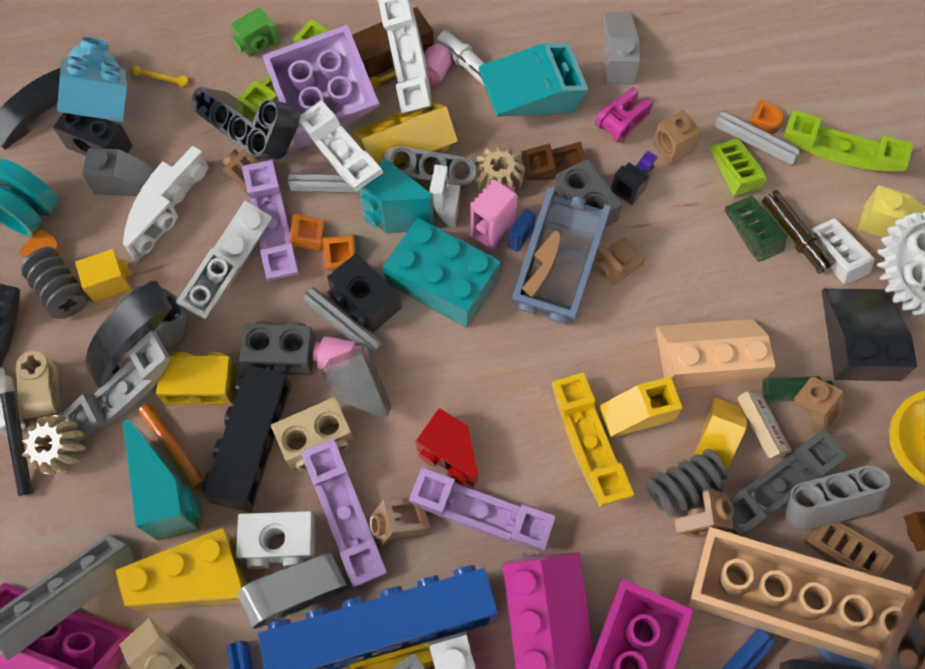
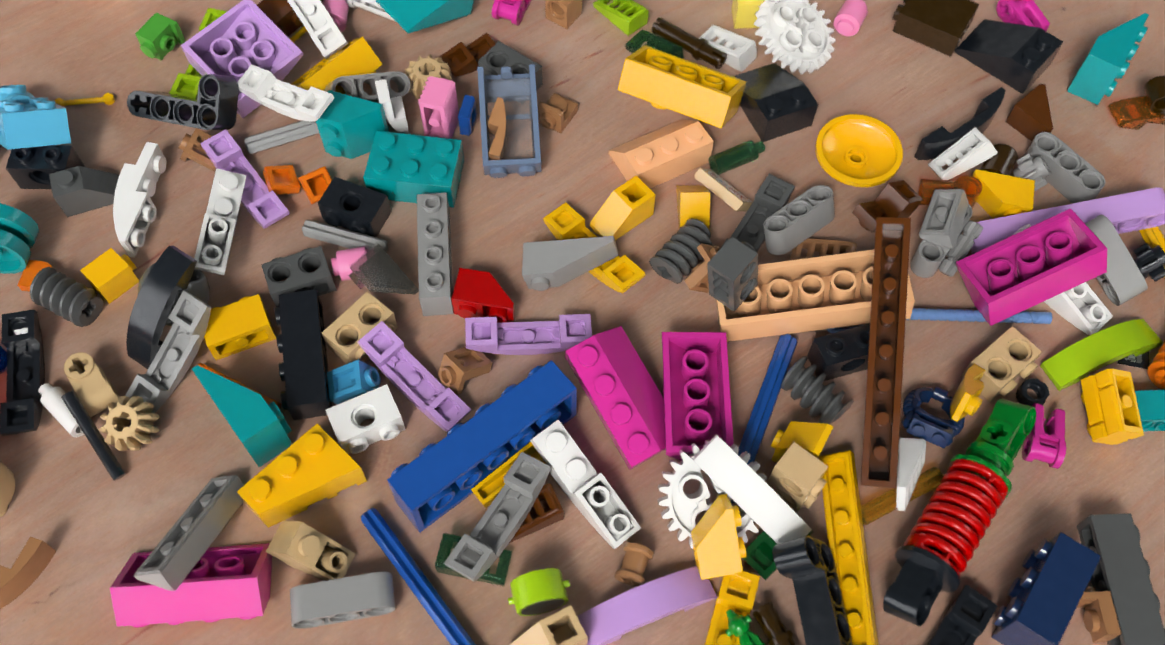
camera: 25 degrees left, 5 degrees down
(282, 489) = (351, 381): none -> dark azure bracket
(291, 590) = (396, 446): light grey beam -> none
(421, 378) = (434, 254): none -> light grey brick
(548, 441) = (560, 261): none -> light grey slope
(632, 180) = (542, 47): black piece -> none
(729, 551) = (733, 273): none -> dark grey brick
(767, 285) = (681, 86): none -> yellow brick
(822, 402) = (759, 155): medium nougat bracket -> none

